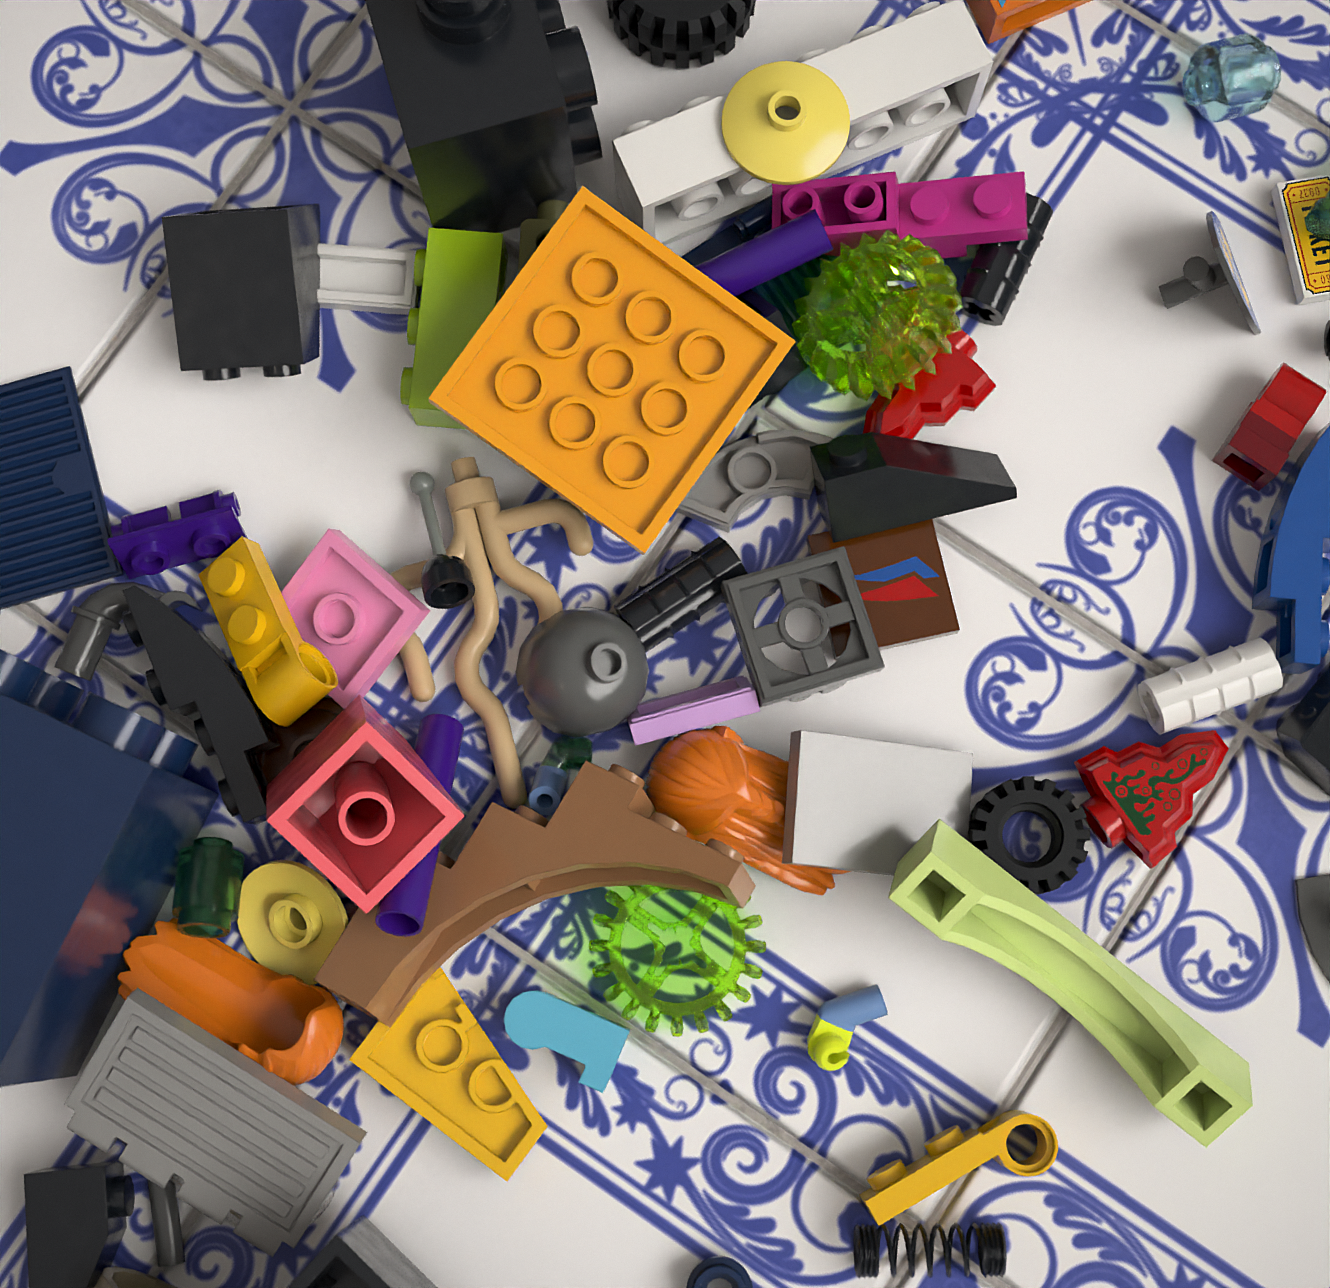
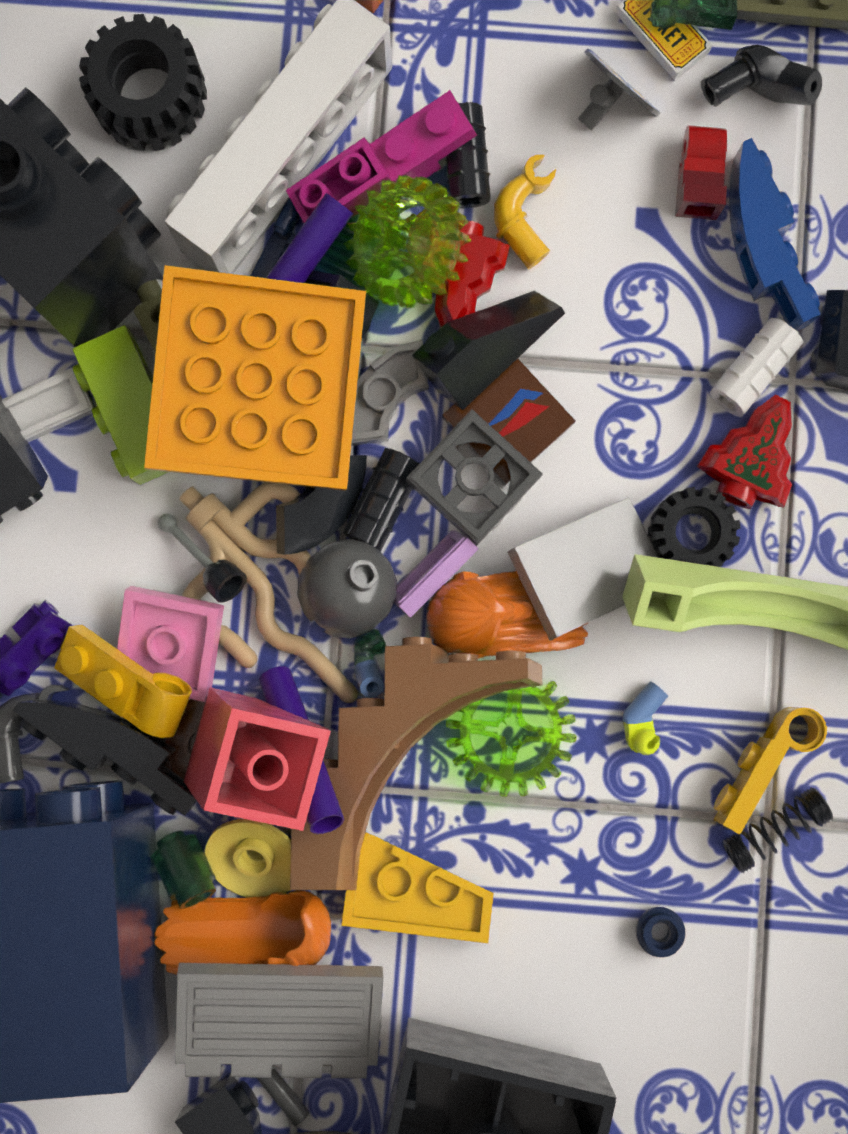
camera: 30 degrees left, 5 degrees up
(545, 1020) = (475, 823): medium azure leg -> none
(602, 565) = (318, 512): none -> black tile
(780, 148) = (277, 166): light yellow dish -> none
(1015, 358) = (510, 218): none -> yellow piece

